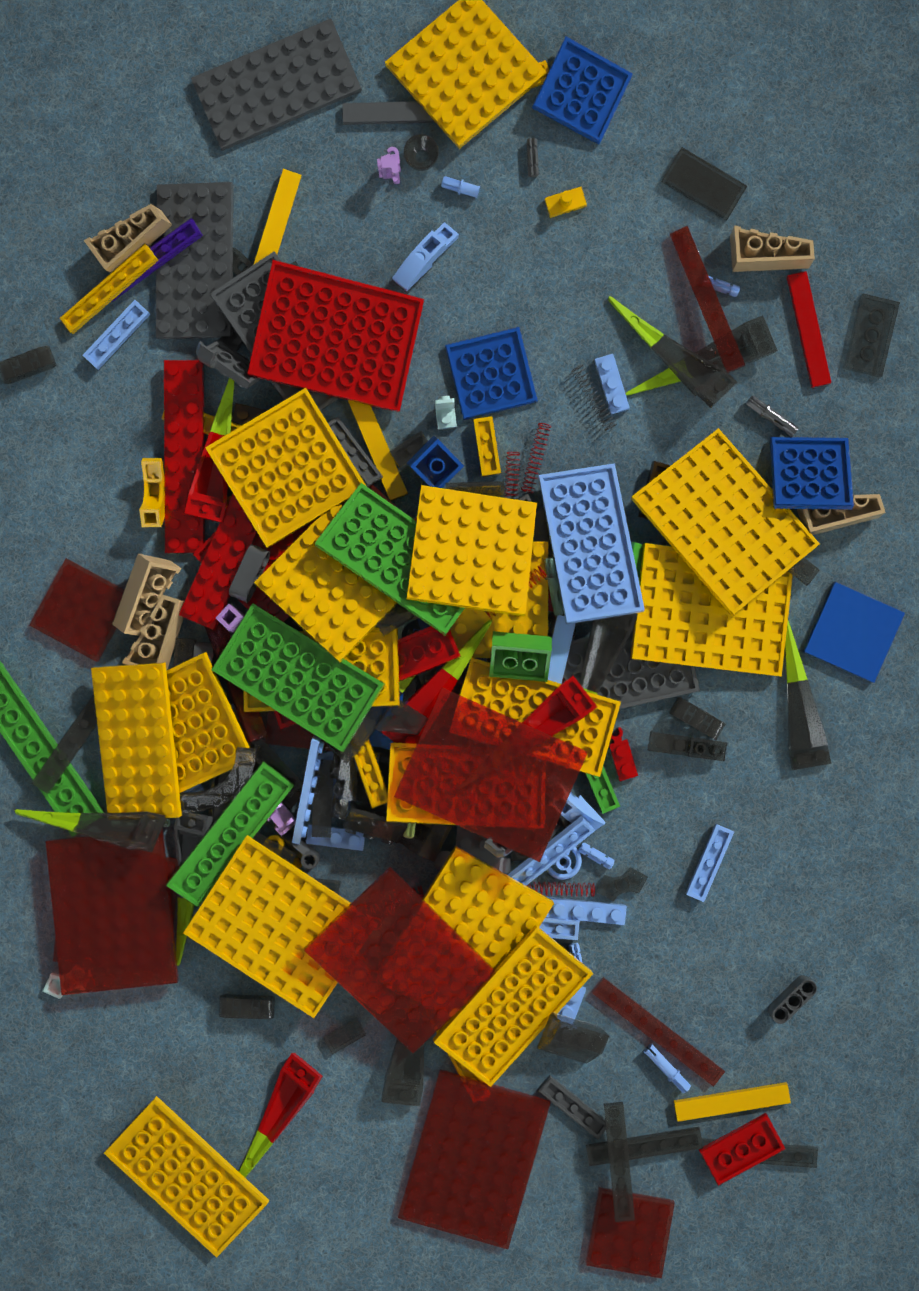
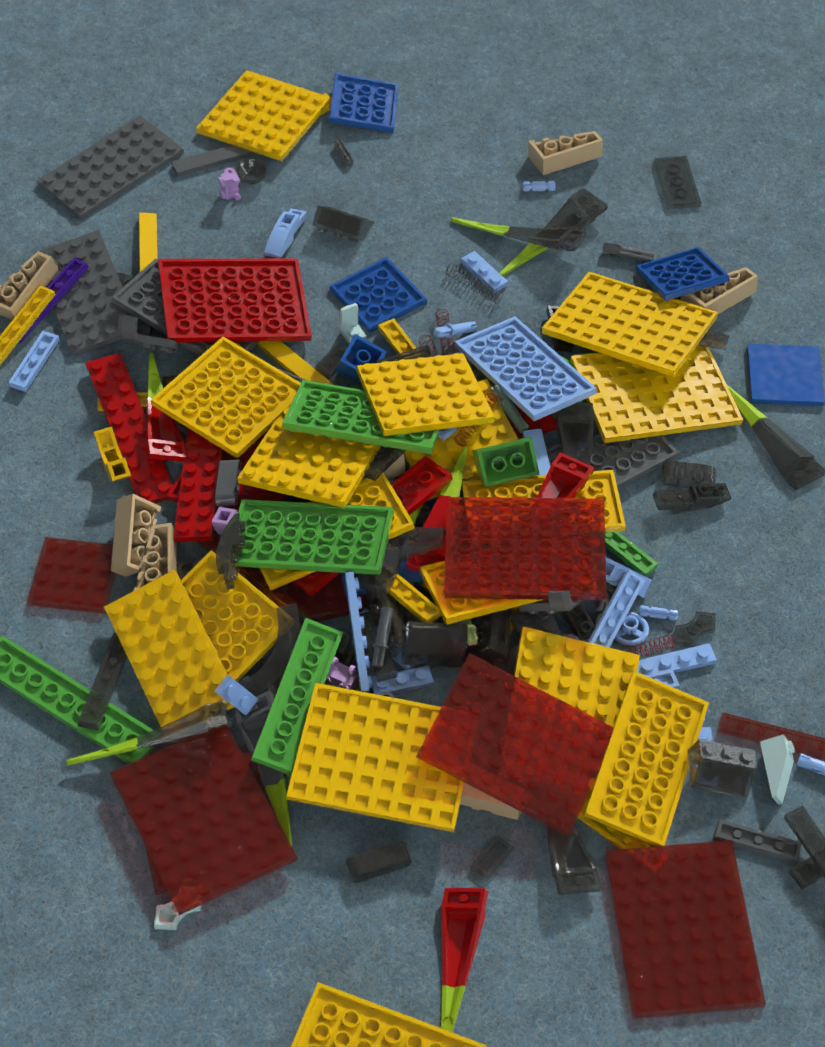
camera: 20 degrees left, 35 degrees down
(175, 815) = (236, 695): none -> light blue plate
(219, 660) = (229, 549): none -> clear smoke slope
(330, 798) = (382, 636): none -> dark grey axle
(460, 186) = (293, 185): light blue axle -> none
(491, 263) = (342, 223): none -> clear smoke slope
(539, 460) = (450, 330): none -> light blue axle
(565, 202) = (387, 169): yellow tile -> none
(622, 757) = (640, 529): red plate -> none
(626, 1047) = (778, 763): none -> light aqua slope
(704, 183) = (490, 131): clear smoke tile -> none
(707, 299) = (533, 193): clear red tile -> none
(709, 862) = (765, 582): light blue plate -> none
(808, 329) = (625, 193): red tile -> none

